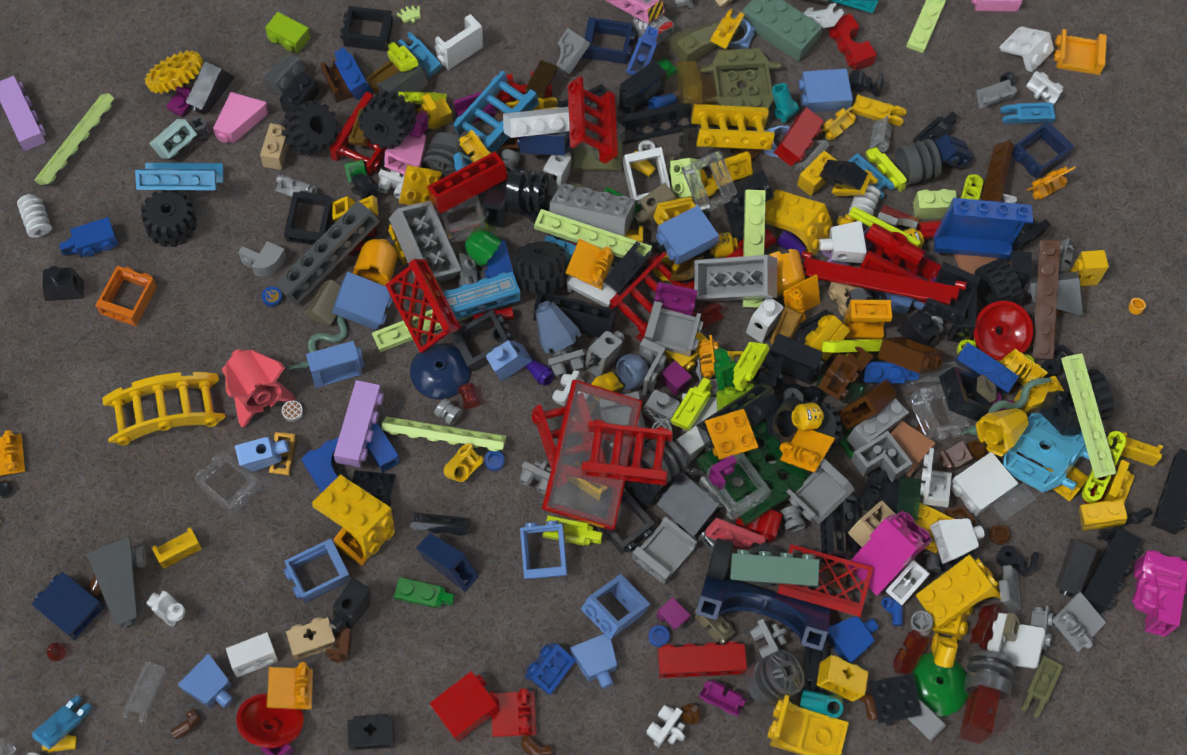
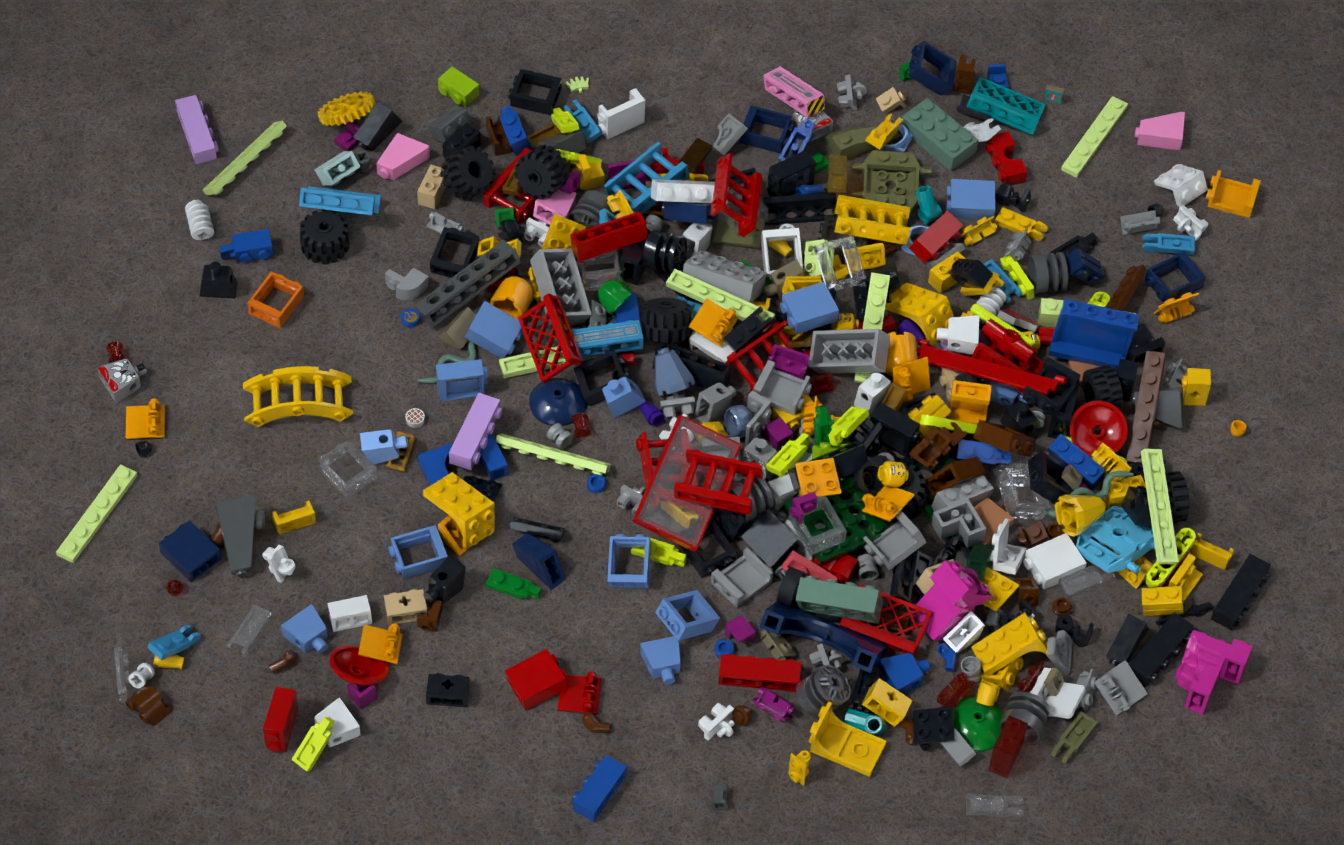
camera: 10 degrees right, 10 degrees down
(254, 383) = (384, 386): coral brick -> none
(466, 461) = (569, 479): yellow piece -> none
(549, 667) = (619, 660): blue bracket -> none
(955, 537) = (1015, 597): white torso -> none

